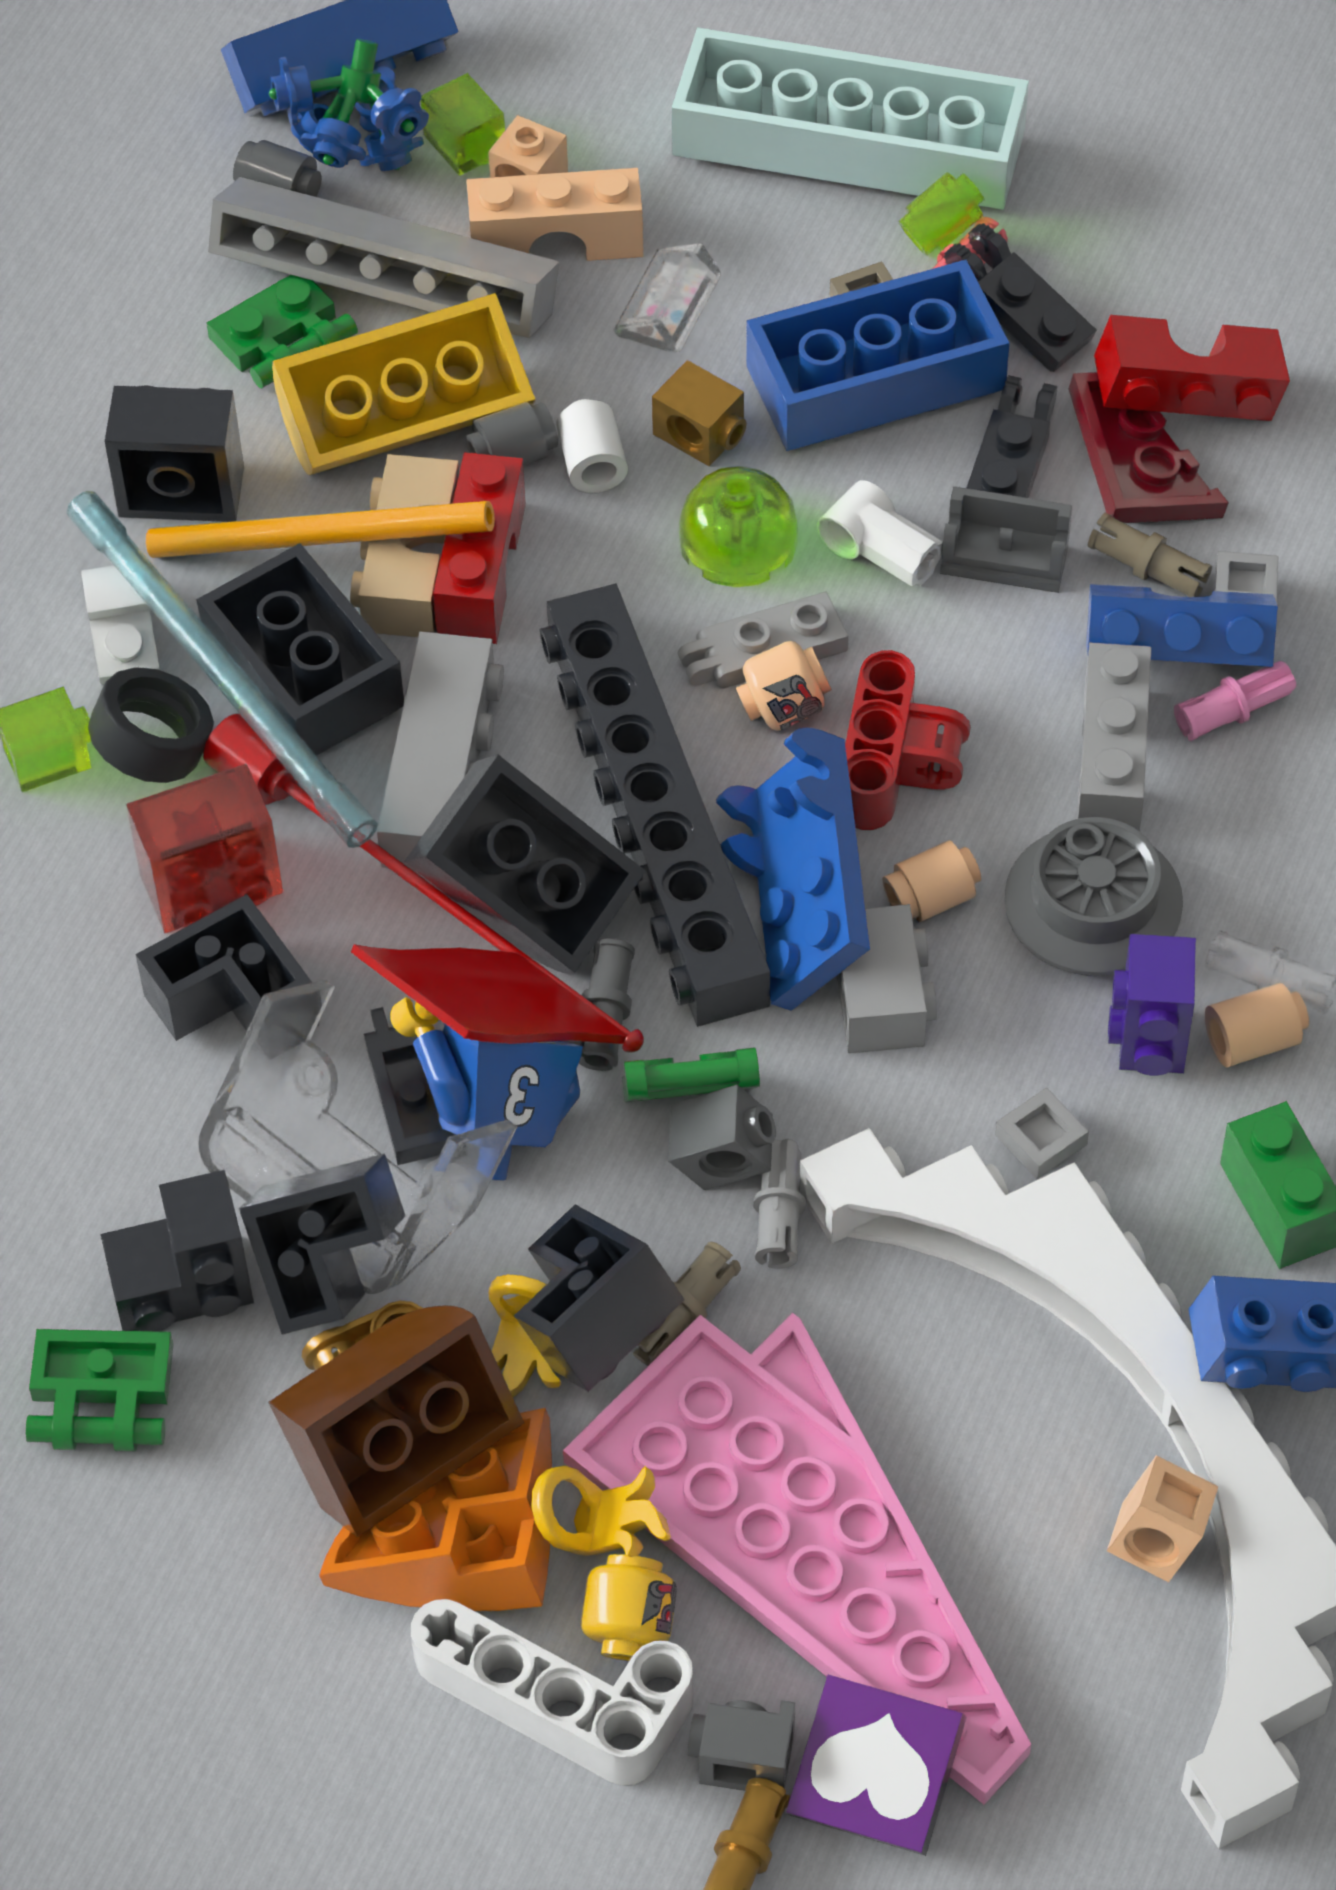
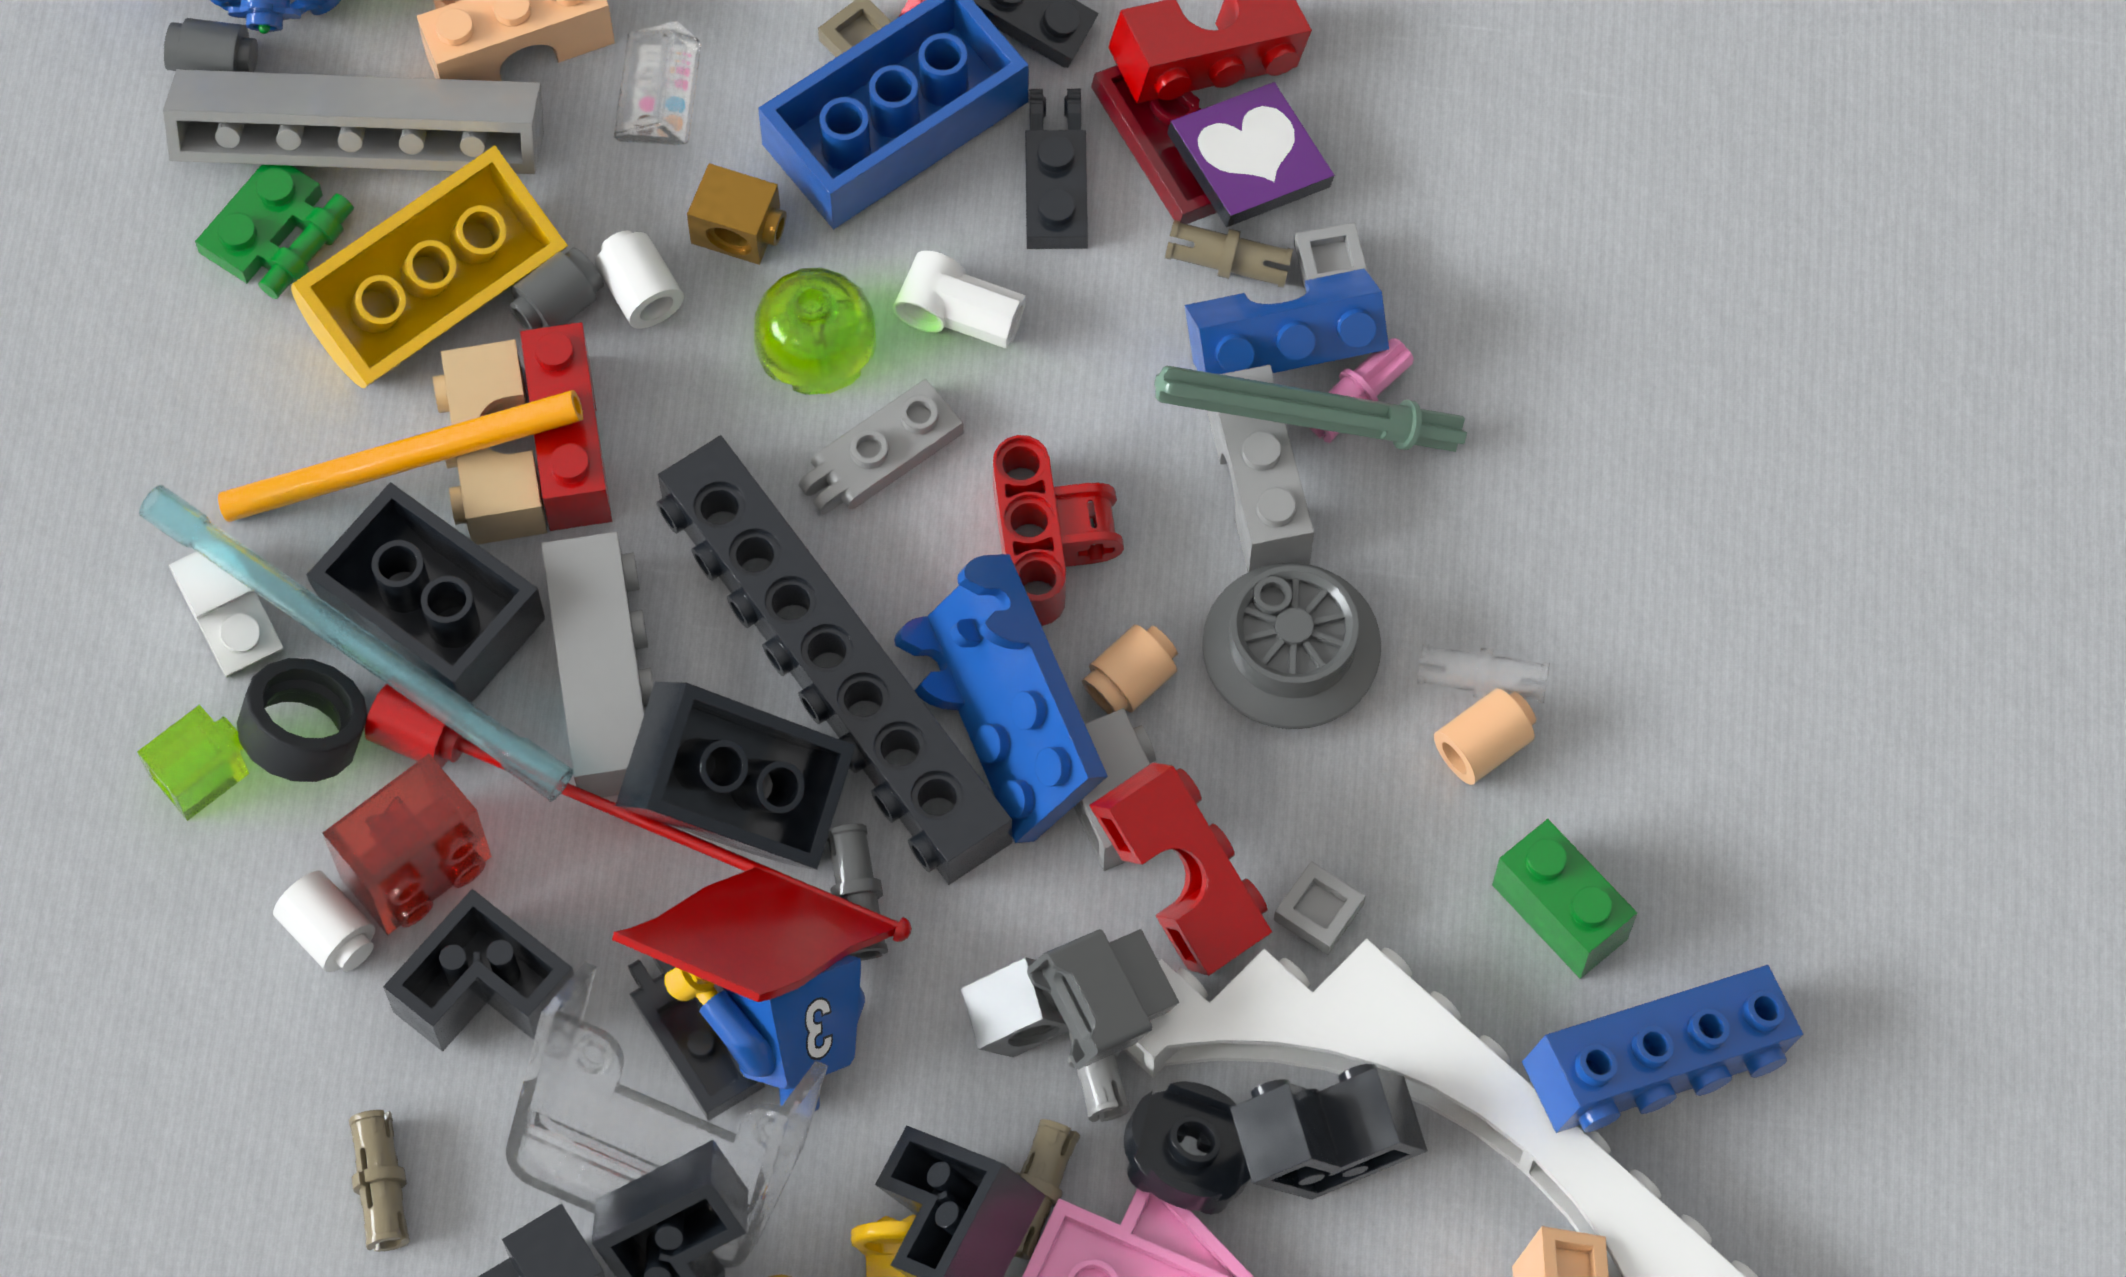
camera: 20 degrees left, 10 degrees up
(76, 1132) = (379, 1180): none -> dark tan pin
(109, 900) = (325, 923): none -> white brick
(174, 453) = (221, 408): black brick -> none
(711, 1073) = (991, 941): green plate -> none
(783, 685) = (919, 496): light nougat head -> none
(800, 1131) = (1104, 991): none -> dark grey piece
(841, 1334) = (1169, 1171): none -> black plate
(911, 995) = (1216, 910): none -> red arch
(972, 1326) = (1330, 1137): none -> black brick
(1006, 539) = (1085, 275): dark grey hinge -> none
(1154, 1004) = (1391, 749): dark purple brick -> none
(1176, 690) = (1400, 423): none -> sand green axle
(1197, 474) = (1250, 154): none -> tile

